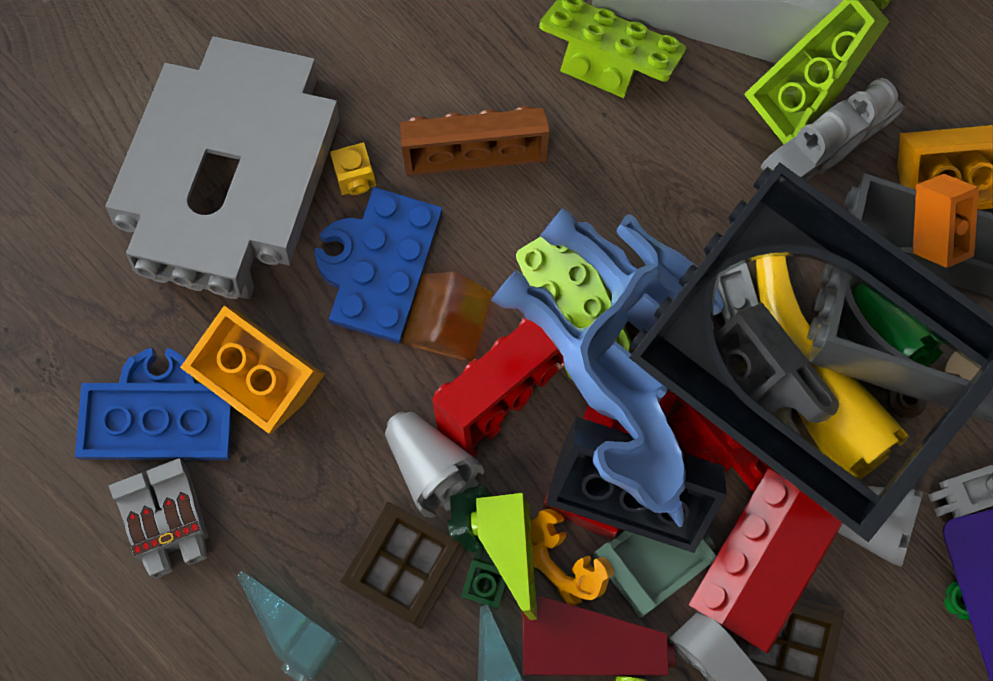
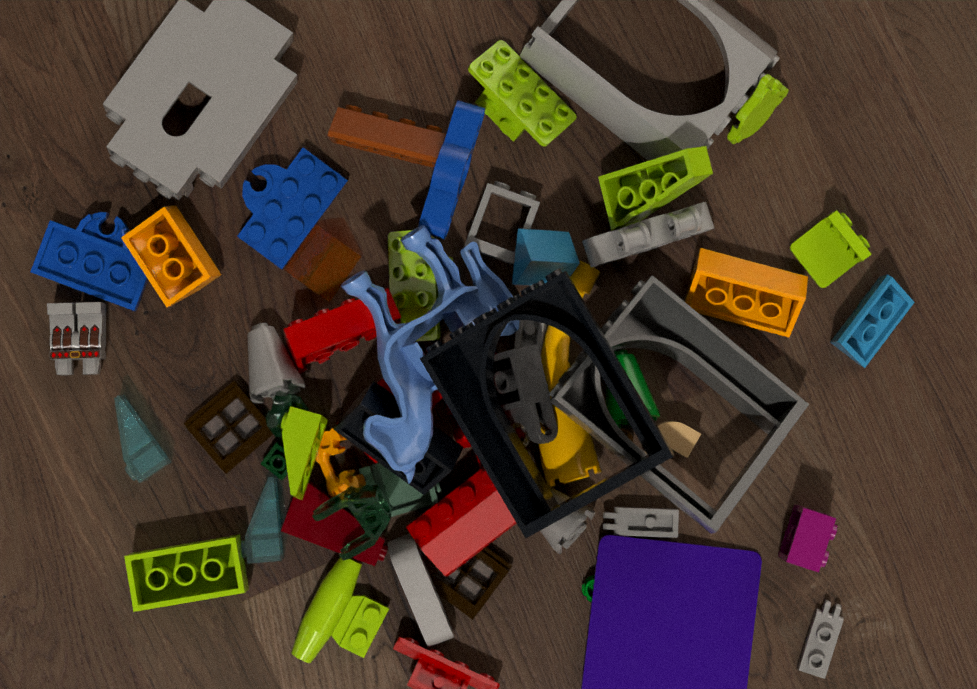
camera: 20 degrees right, 15 degrees up
(353, 169) = (294, 126): yellow bracket -> none
(568, 137) = (451, 168): none -> blue piece
(622, 586) = (369, 508): none -> clear green piece
(655, 224) = (502, 190): none -> light grey window
(709, 203) = (542, 253): none -> dark azure slope
(945, 220) = (689, 334): orange brick -> none

